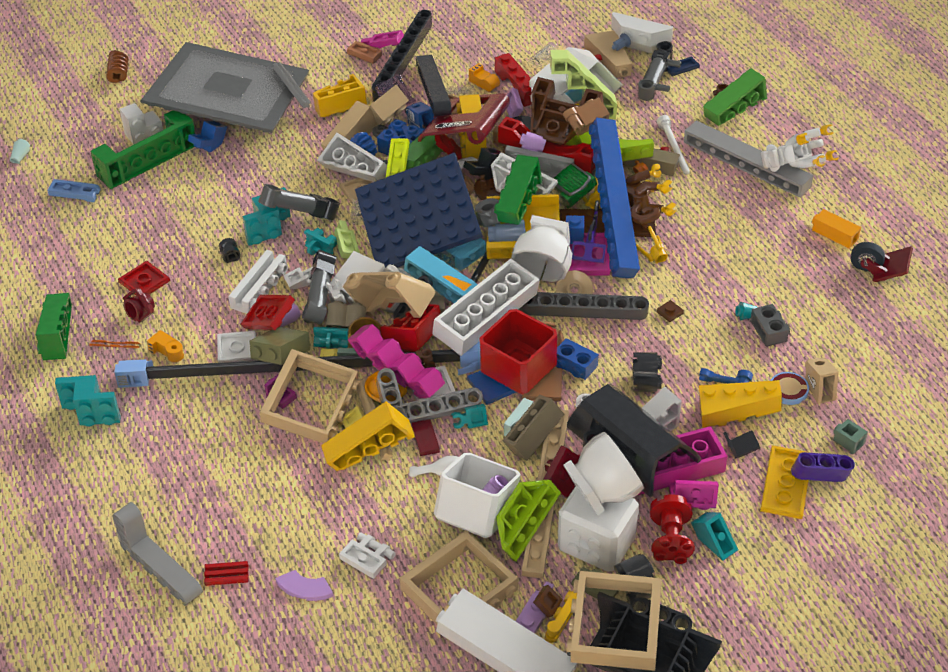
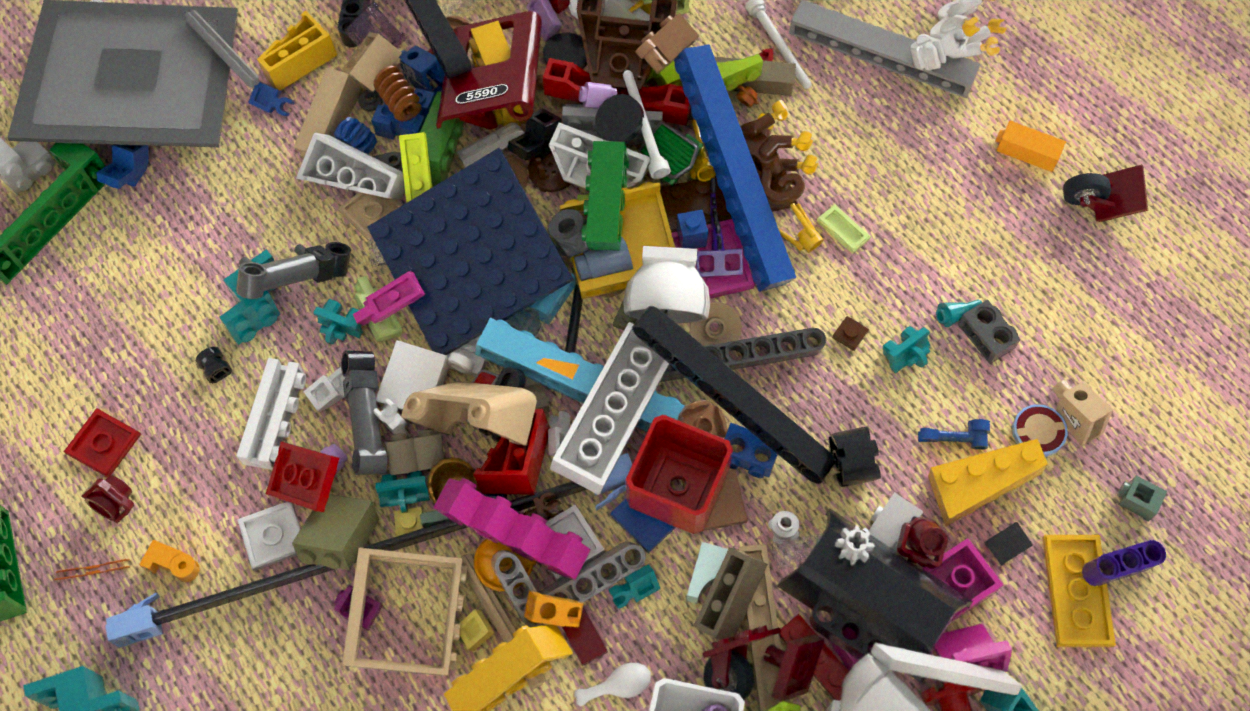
camera: 15 degrees left, 20 degrees up
(313, 119) = (268, 99): none -> blue plate
(356, 229) = (390, 299): none -> dark pink hinge
(398, 121) = (397, 93): none -> dark orange piece
(411, 409) = (553, 610): none -> light orange leg
(528, 452) = (728, 662): none -> plate
(546, 153) = (619, 118): none -> black tile
(560, 184) = (658, 165): none -> white piece
(571, 315) = (734, 394): none -> black beam
(620, 391) = (847, 547): none -> white gear
(665, 475) = (945, 669): none -> white tile
(676, 417) = (923, 538): none -> dark red piece
(685, 254) = (843, 229): none -> yellowish green tile
(707, 325) = (910, 351): none -> teal hips

